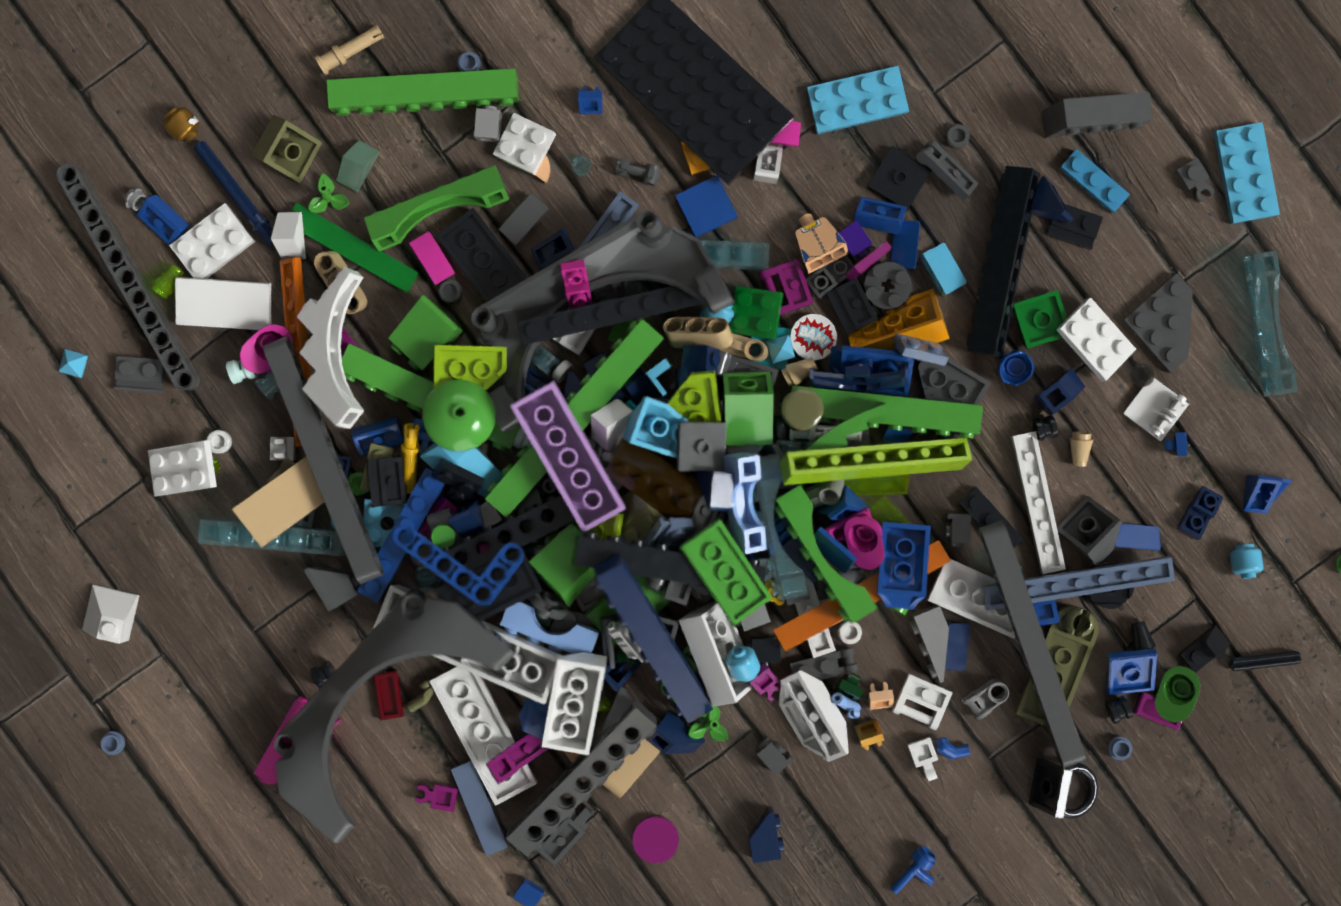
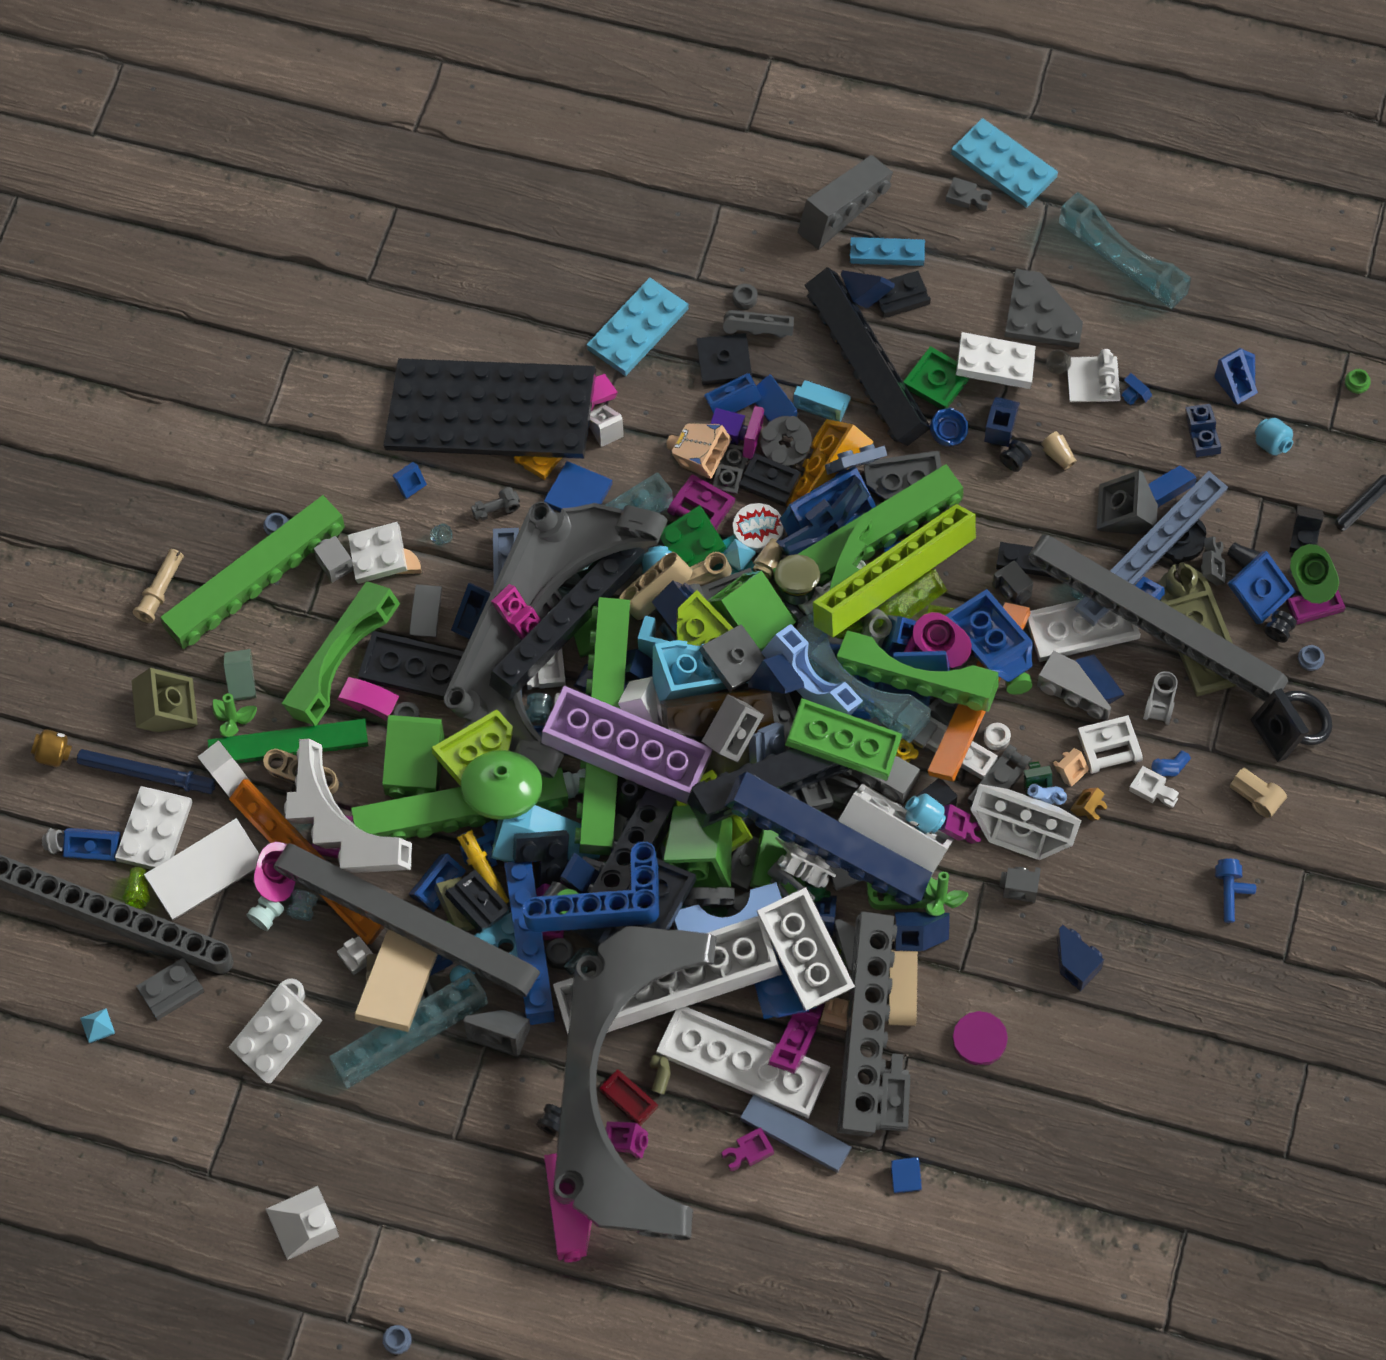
camera: 40 degrees left, 25 degrees down
(362, 724) = (627, 1137): none -> magenta bracket
(649, 508) = (732, 728): none -> light grey brick
(995, 824) = (1263, 796): none -> tan piece
(1038, 502) = (1061, 515): white plate -> none
(1112, 626) = (1213, 565): none -> dark grey plate

